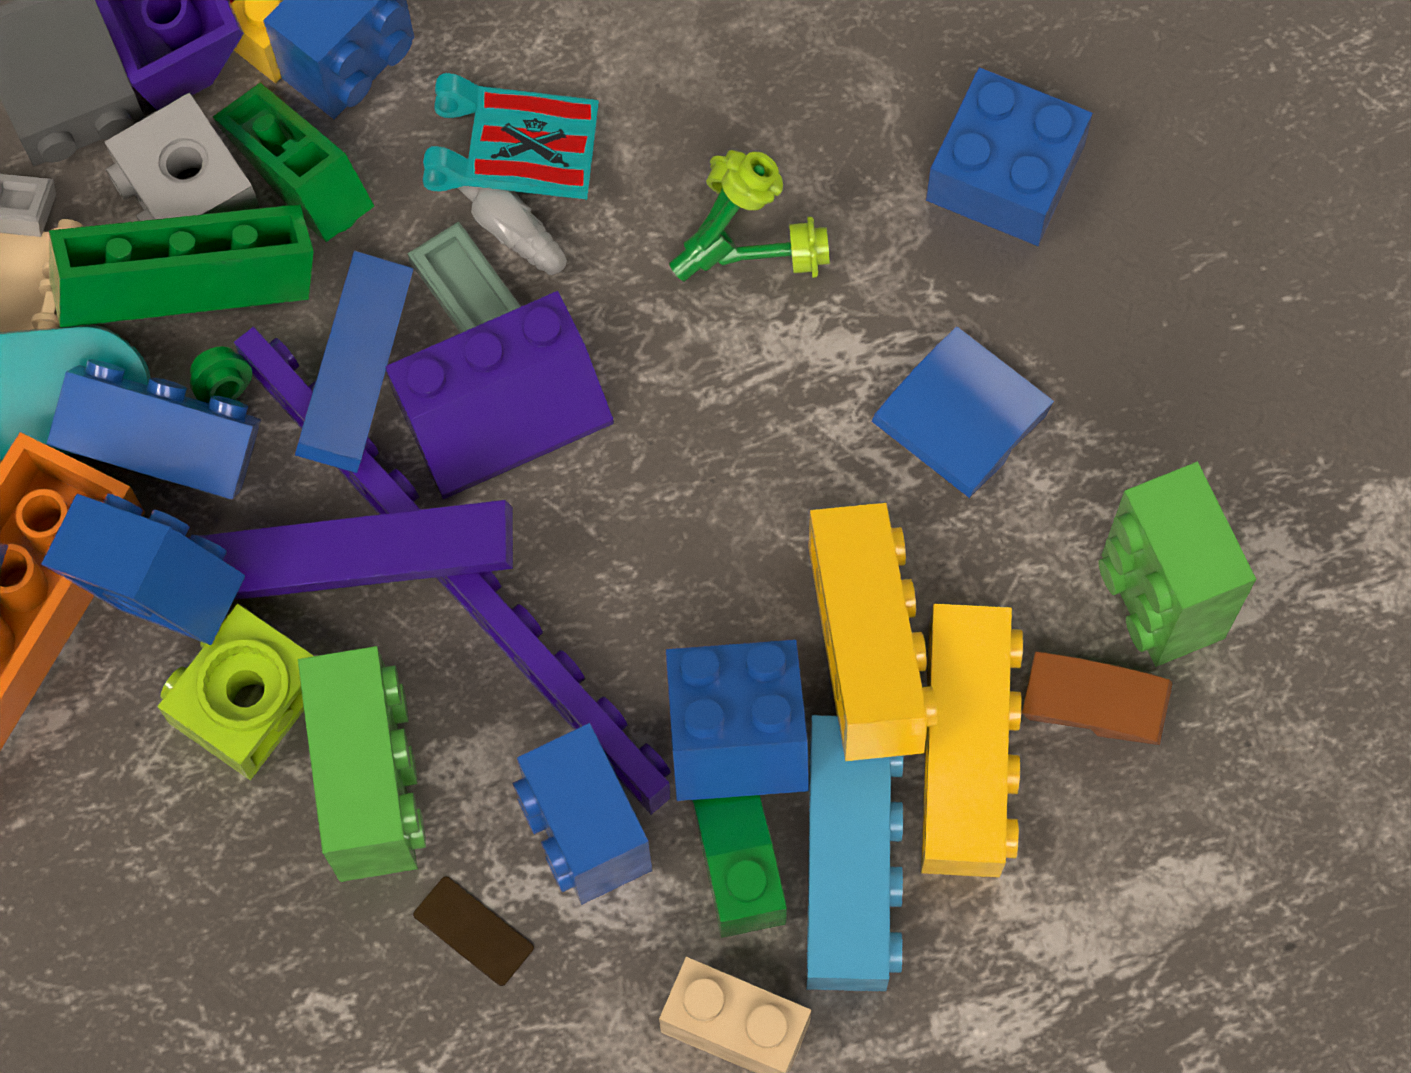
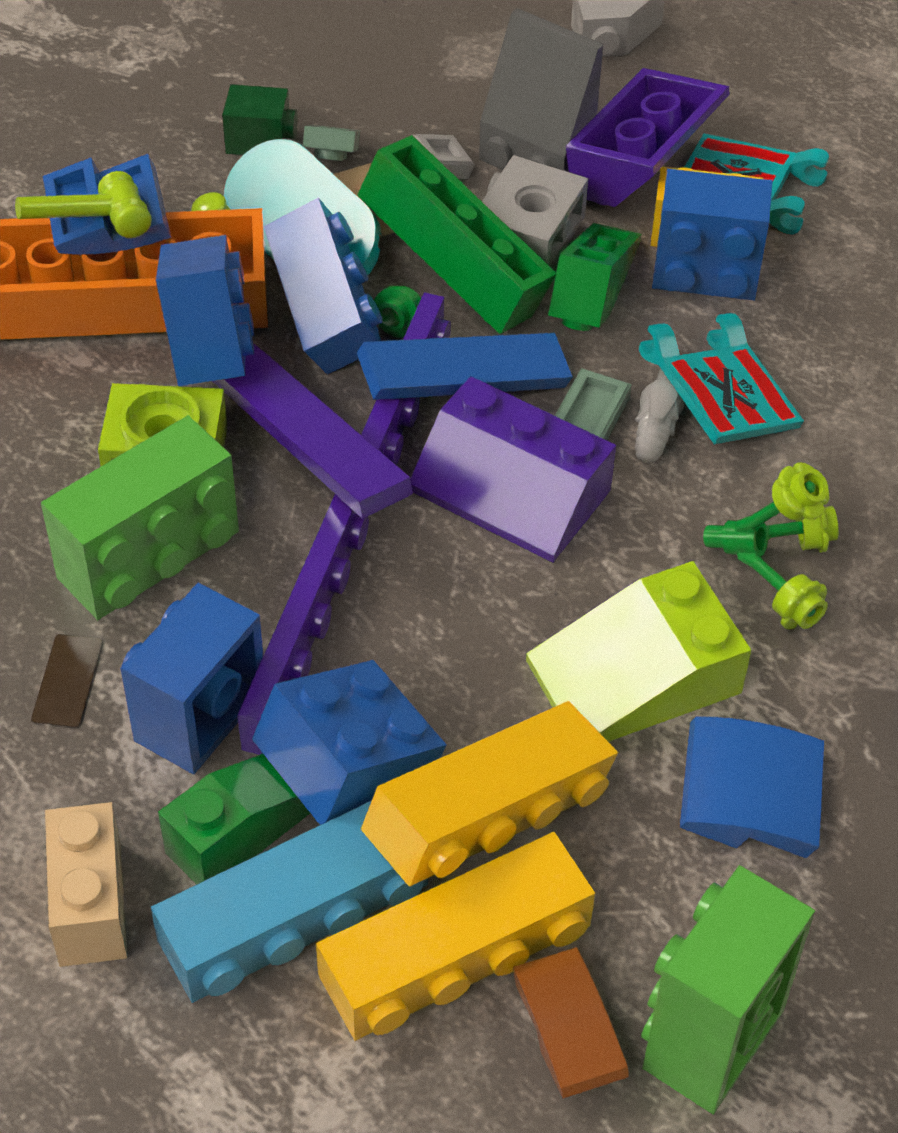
camera: 55 degrees right, 20 degrees down
(782, 419) = (645, 655): none -> slope

